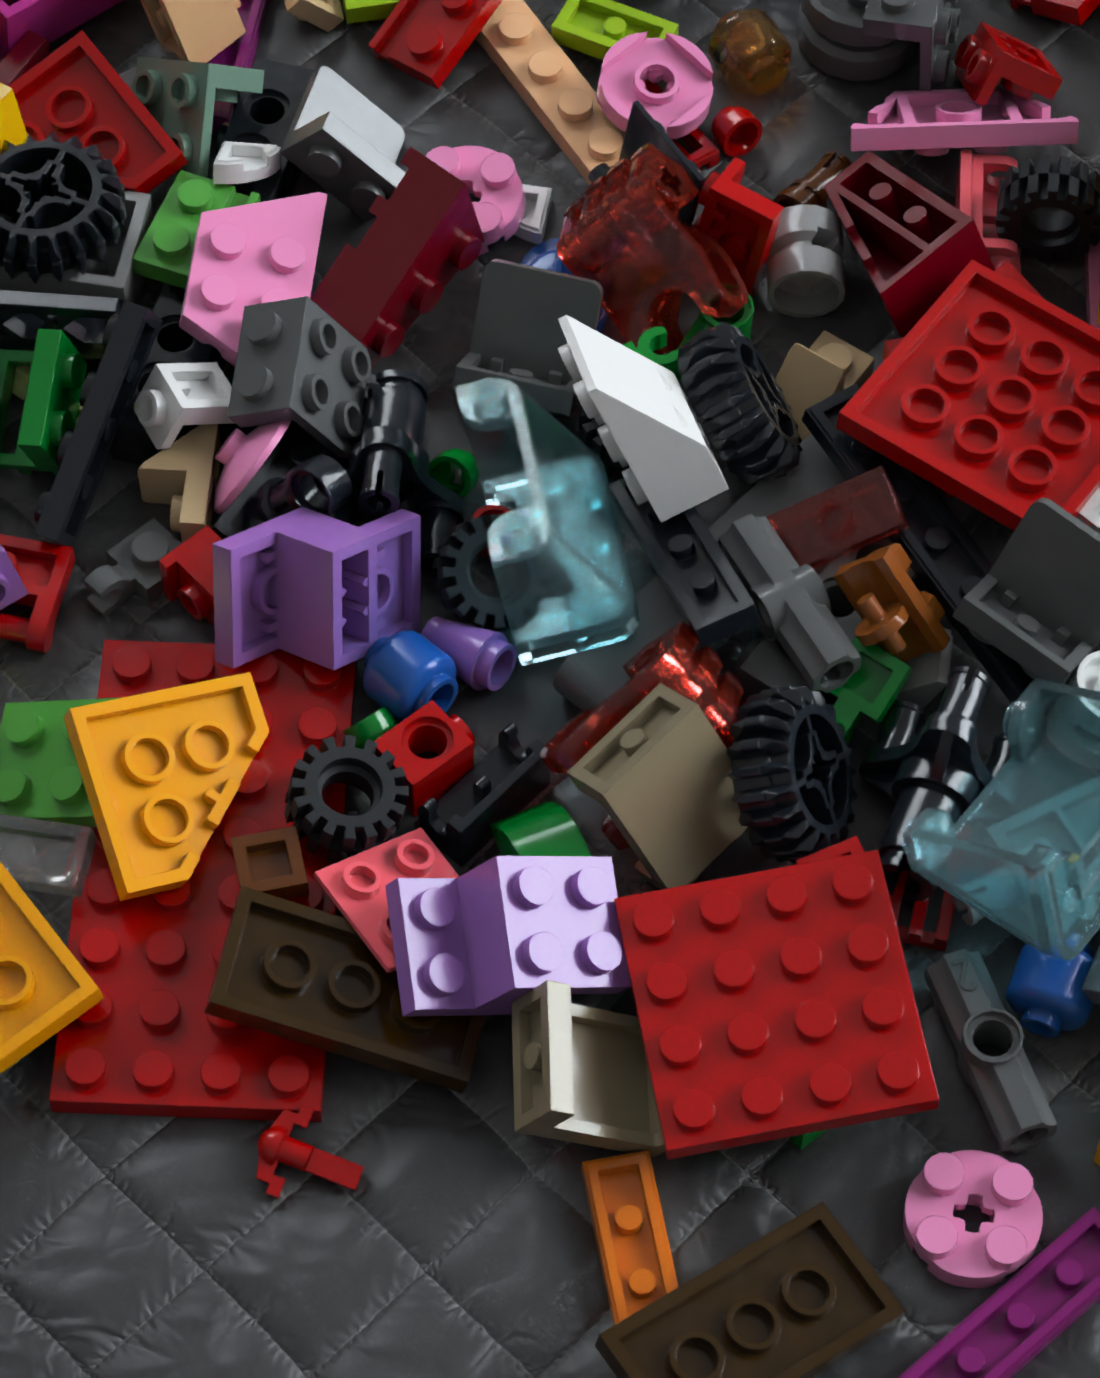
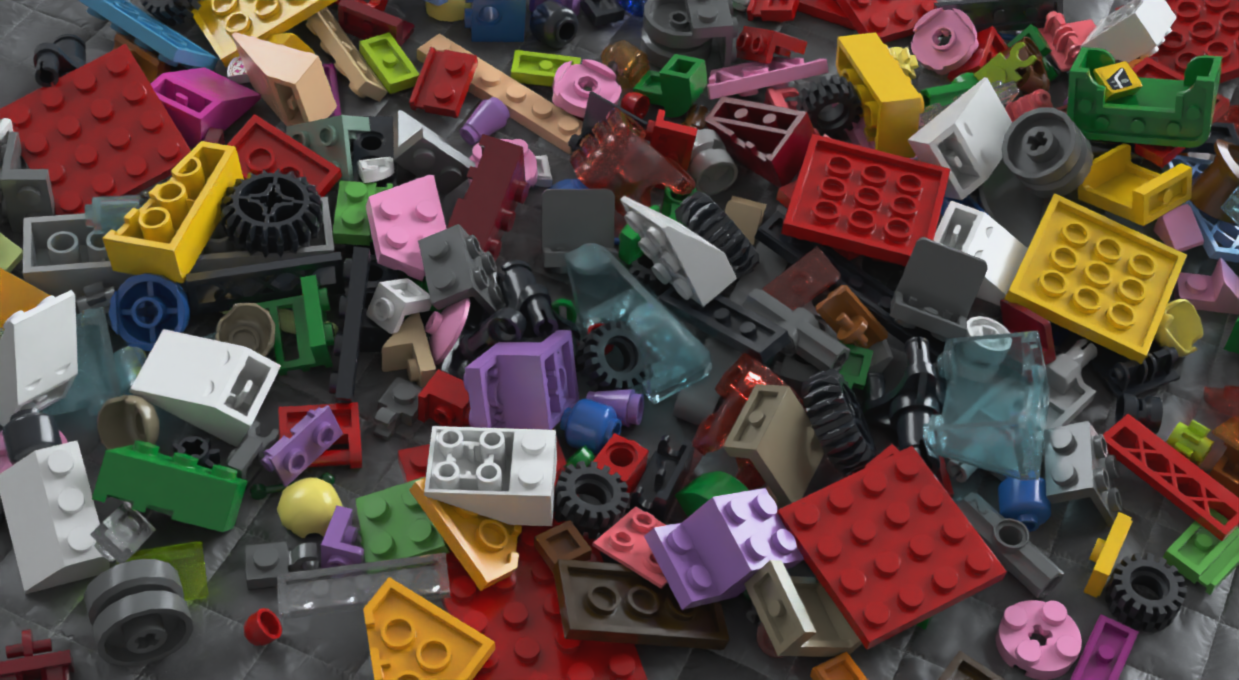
camera: 25 degrees left, 10 degrees down
(201, 723) = (494, 472): none -> white slope
(474, 106) = (486, 119): none -> medium lavender cone
(808, 109) = (675, 85): none -> green brick

